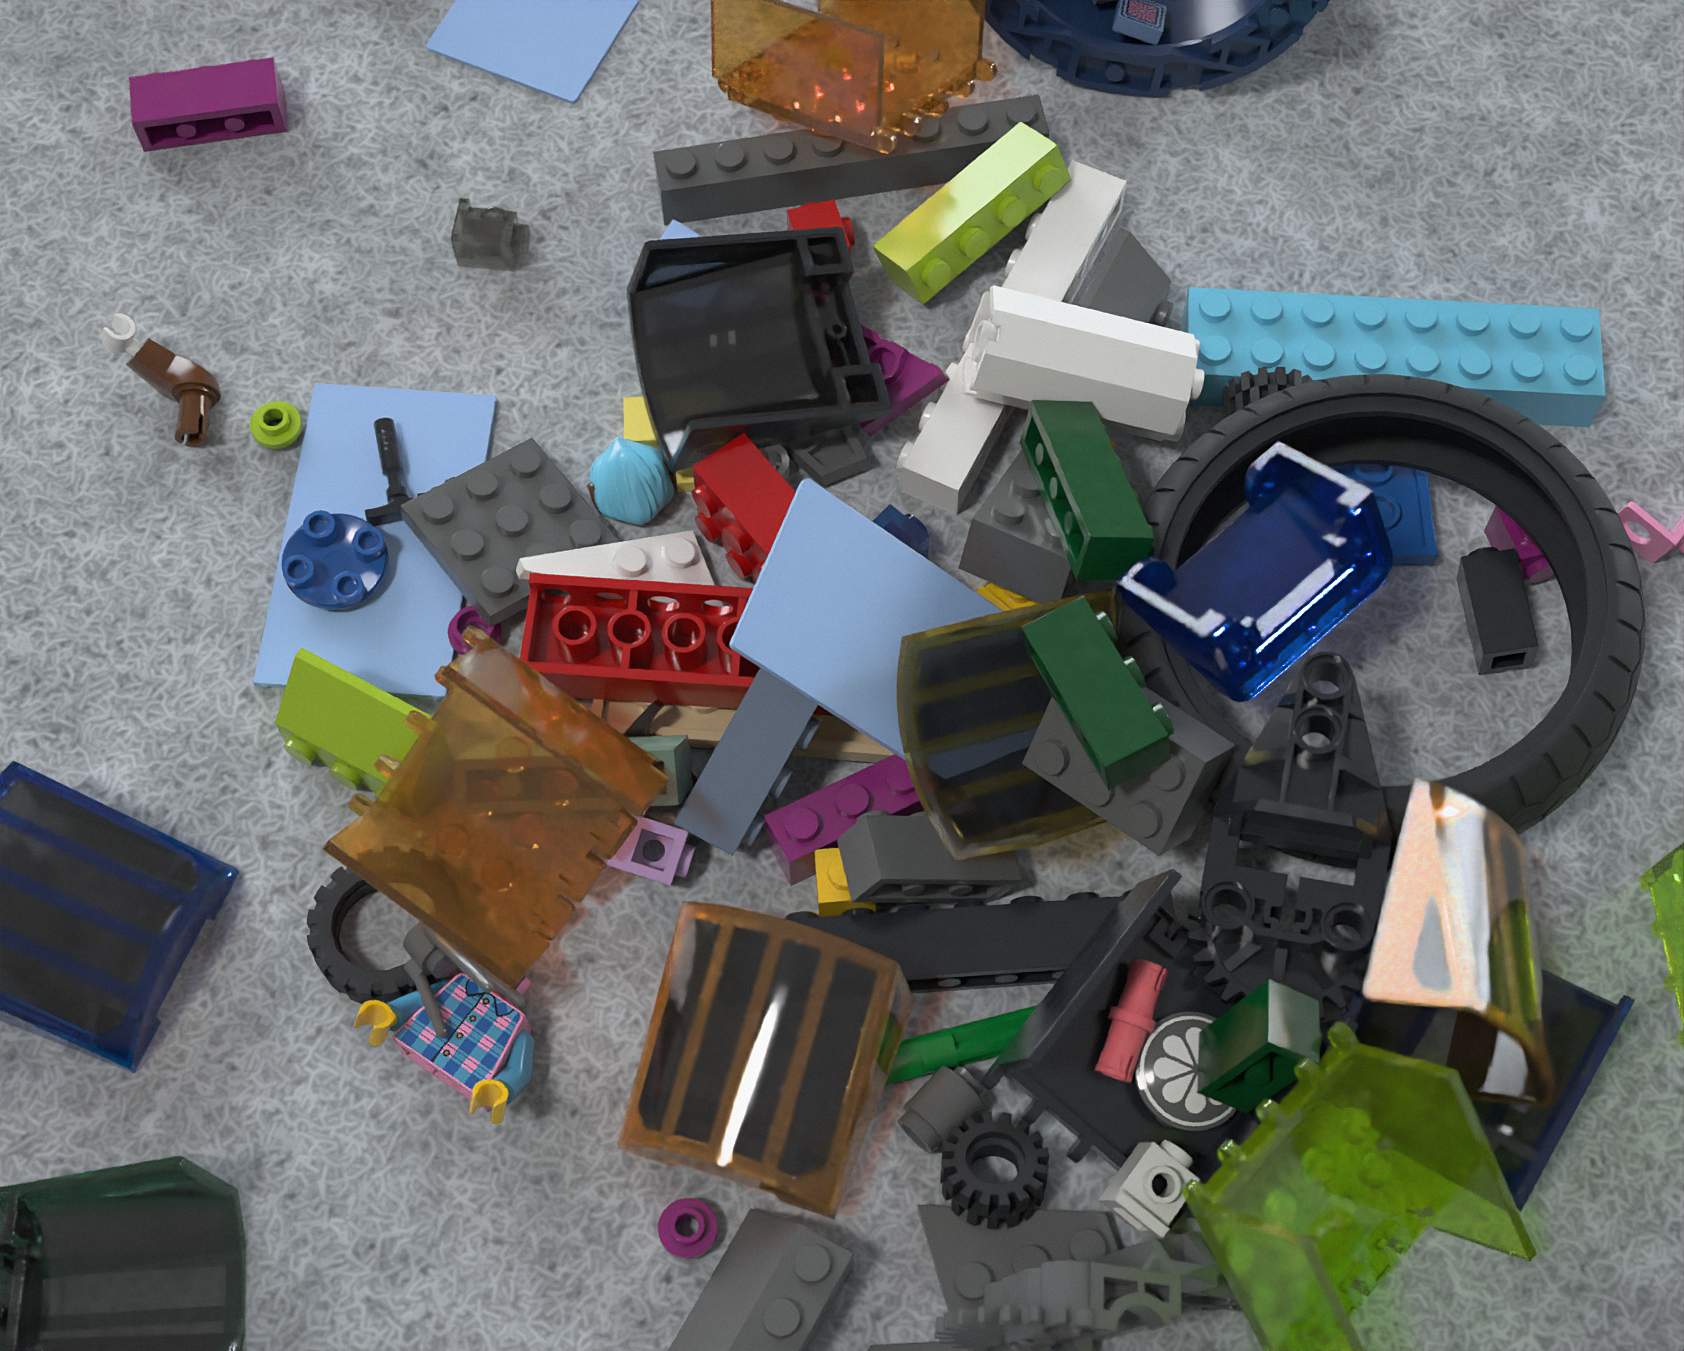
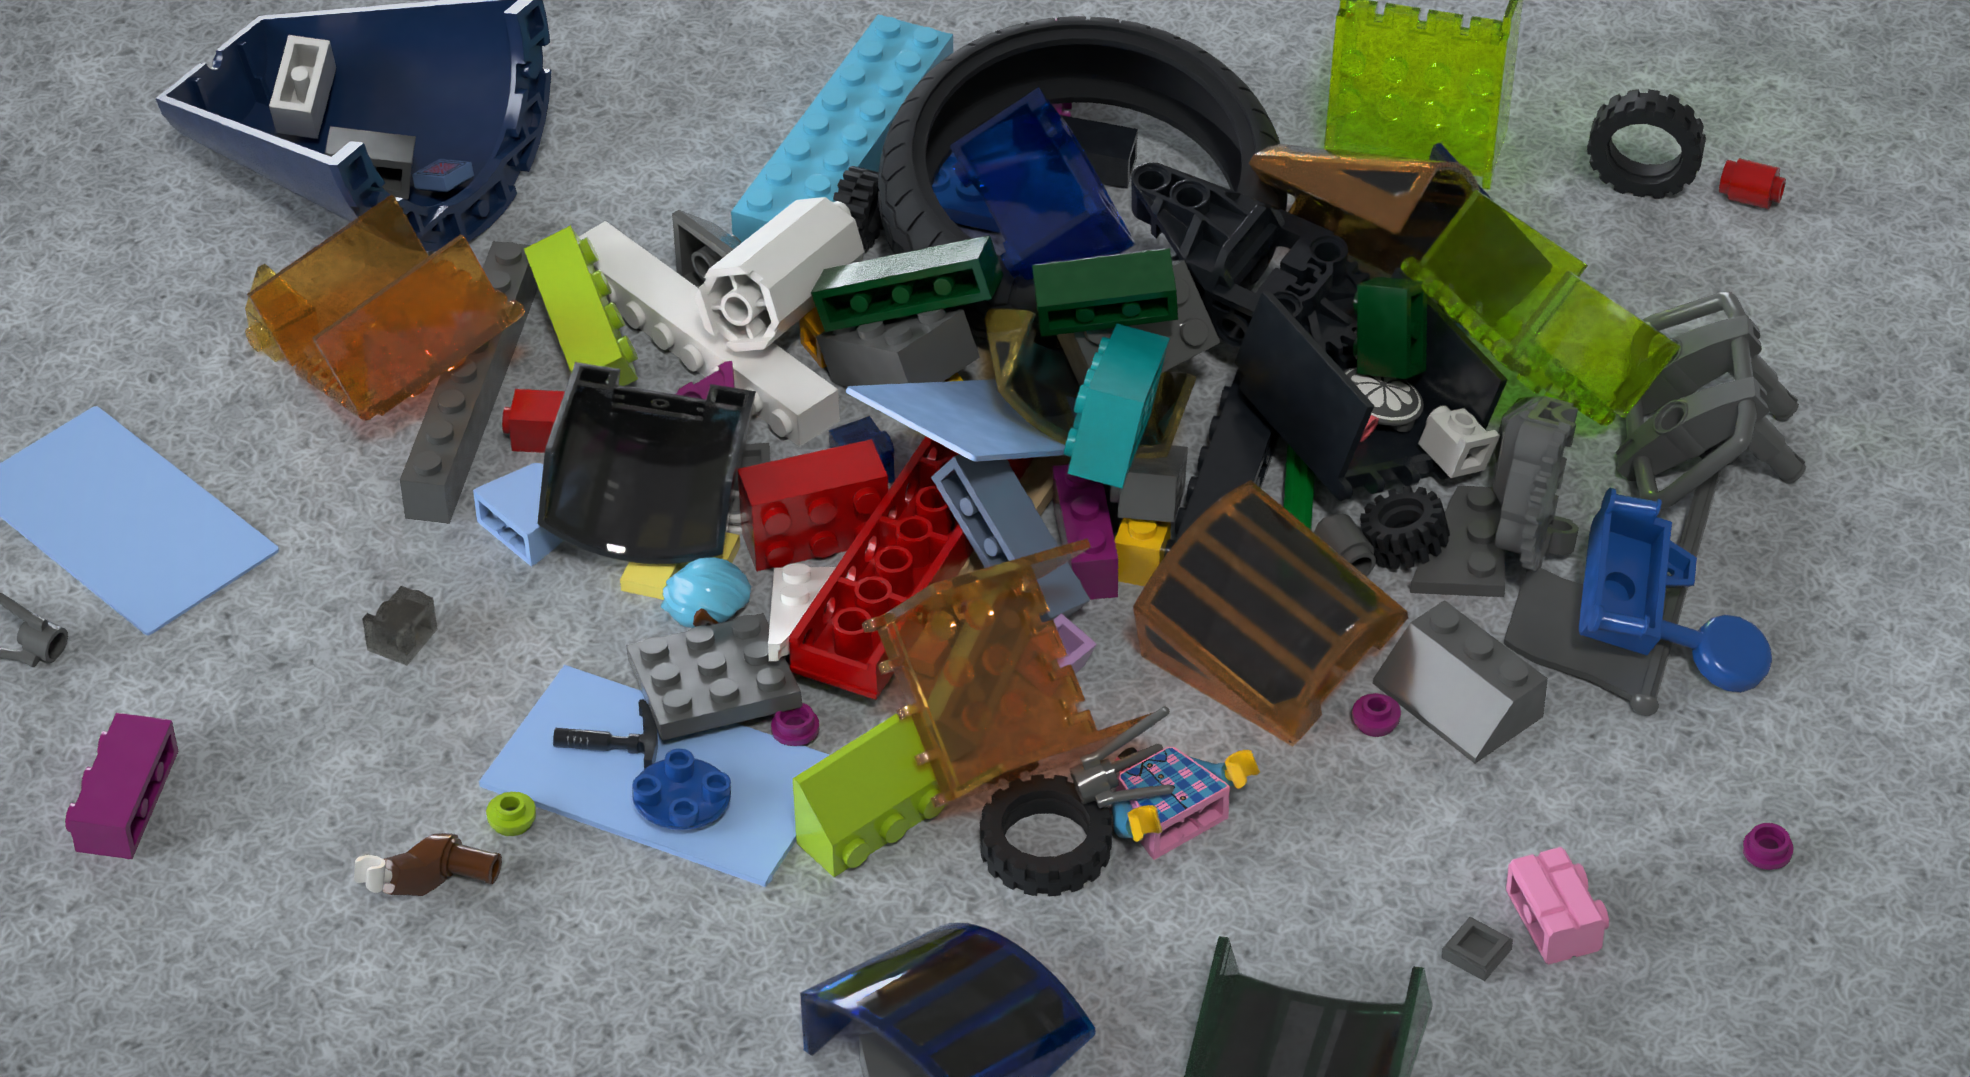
camera: 70 degrees left, 20 degrees down
(942, 771) = (1115, 405): none -> teal brick

